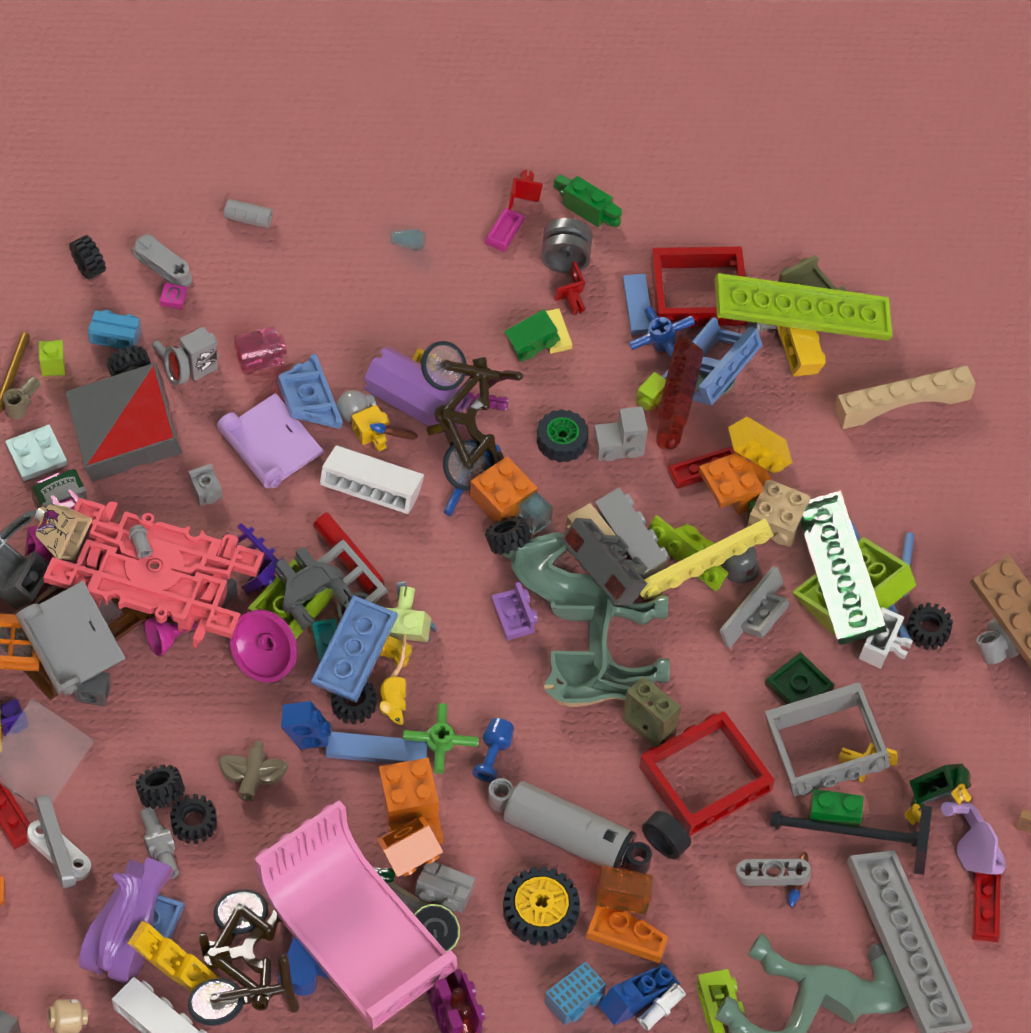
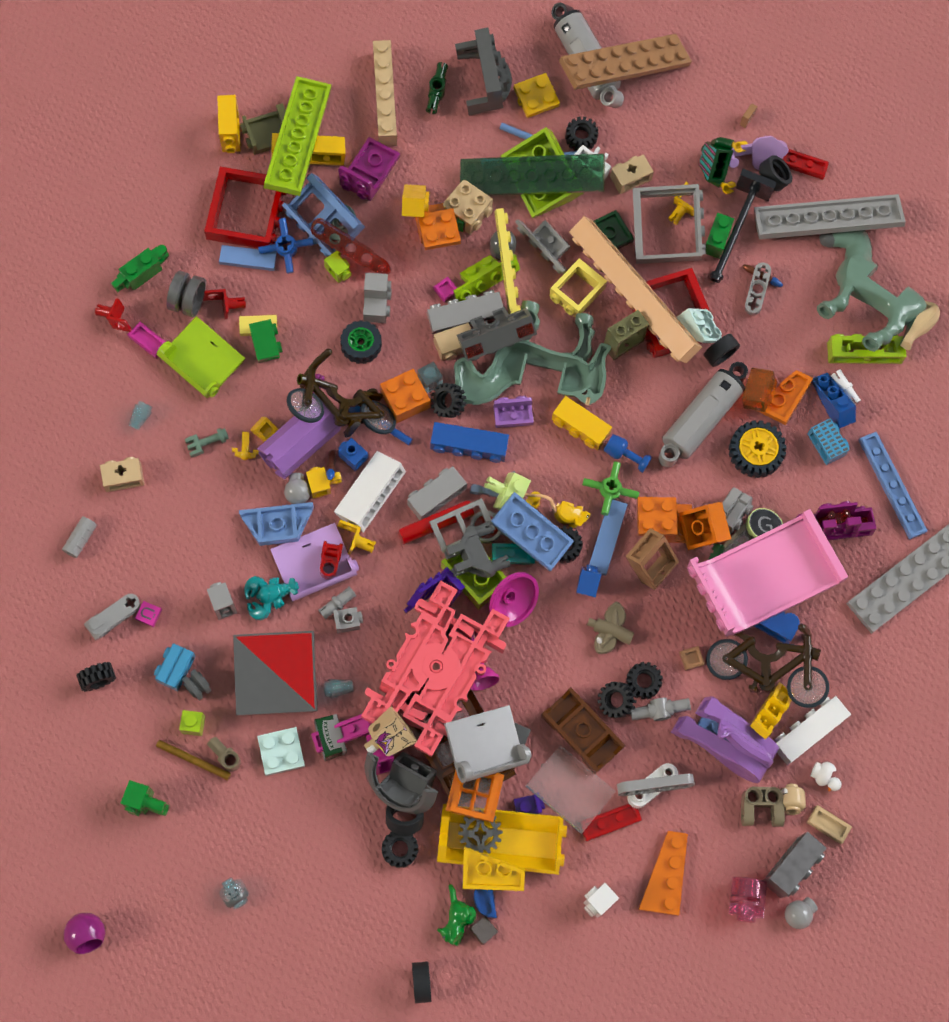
camera: 80 degrees left, 15 degrees up
(47, 965) = (762, 801): none -> dark tan piece
(96, 352) = (196, 684): none -> dark grey wheel
(112, 758) = (583, 730): none -> reddish brown piece
(120, 489) = (336, 687): none -> clear light blue cone
(127, 360) = (219, 659): black tyre -> none
(140, 540) = (416, 672): light grey pin -> none
(175, 362) = (223, 623): light grey piece -> none
(219, 399) = (267, 594): none -> teal animal
(226, 473) = (337, 602): none -> light grey pin
(235, 873) = (691, 658): none -> medium nougat tile
(259, 349) = (227, 552): clear pink gear -> none
(275, 451) = (330, 556): none -> red piece
(306, 476) = (357, 540): none -> yellow bracket
(331, 236) = (131, 476): none -> tan brick
(359, 772) = (643, 552): none -> medium nougat window
(386, 548) = (436, 493): none -> light grey brick
(400, 347) = (245, 454): none -> yellow piece
(404, 319) = (198, 444): none -> sand green hinge
(412, 450) = (352, 453): none -> blue brick
(462, 572) = (469, 442): none -> blue brick
(491, 282) = (199, 361): none -> lime door
(520, 689) = (581, 423): none -> yellow brick
(663, 510) = (445, 289): none -> dark pink tile
(686, 792) = (700, 325): none -> light aqua slope
(688, 473) = (410, 249): red tile -> none
(698, 673) = (586, 274): none -> light yellow window
(714, 710) = (635, 290): none -> light nougat brick
(792, 399) = (368, 169): none -> magenta bracket
(815, 229) = (228, 123): none -> yellow window
(891, 692) = (631, 174): none -> tan brick
(943, 452) = (436, 95): none -> dark green pin
(963, 564) = (536, 95): none -> yellow plate
(967, 869) = (776, 170): none -> black tyre
(999, 482) = (492, 67): none -> dark grey piece

